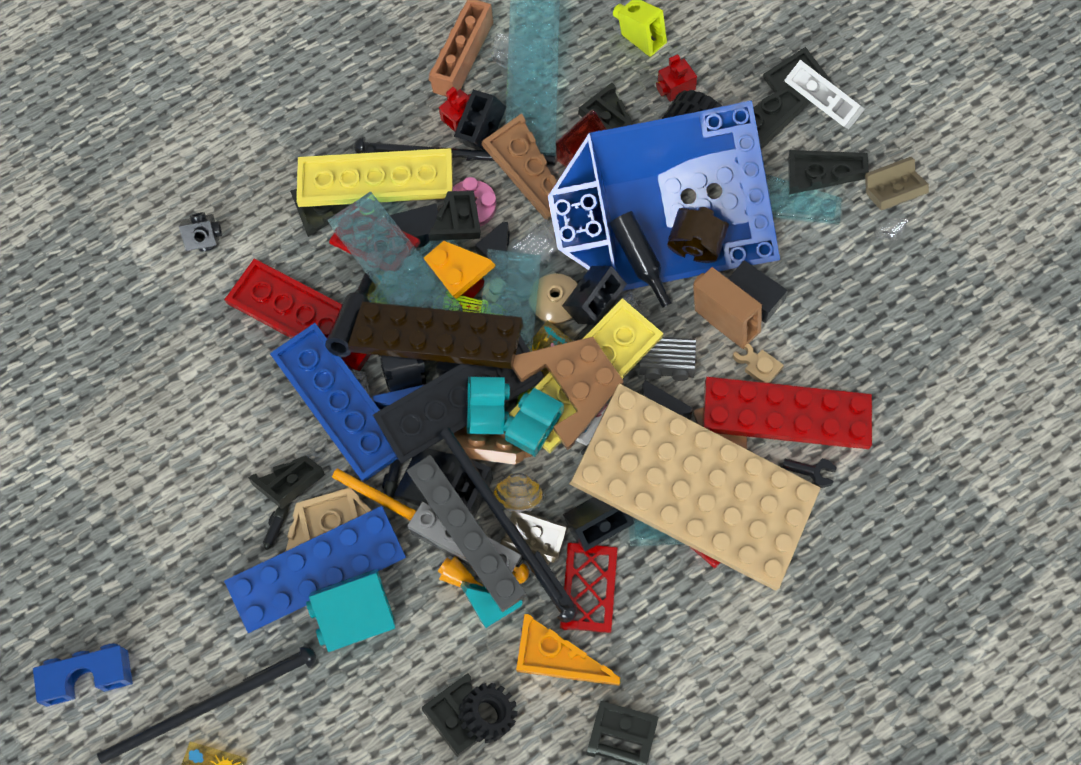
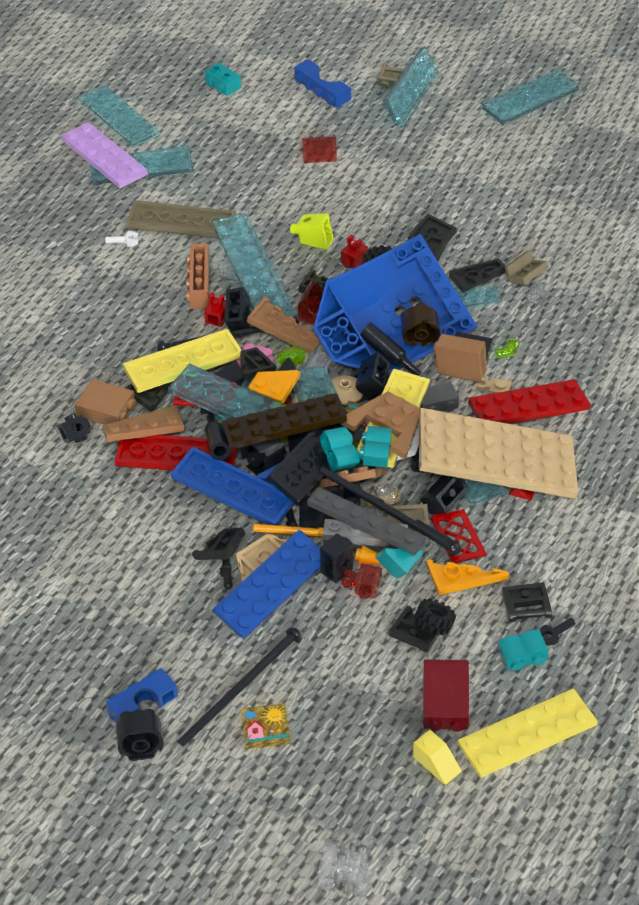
camera: 30 degrees left, 20 degrees down
(48, 733) = (139, 734): none -> black brick
(256, 207) = (105, 402): none -> medium nougat brick
(292, 260) = (148, 424): none -> medium nougat wing
(351, 611) = (311, 594): teal brick -> none
(408, 568) = (336, 557): none -> black brick
(432, 613) = (365, 581): none -> clear red brick
(517, 215) = (295, 353): none -> clear neon green brick
(808, 310) = (510, 349): none -> clear neon green arm
(812, 470) = (564, 429): black bar -> none
(824, 94) = (456, 233): white slope -> none

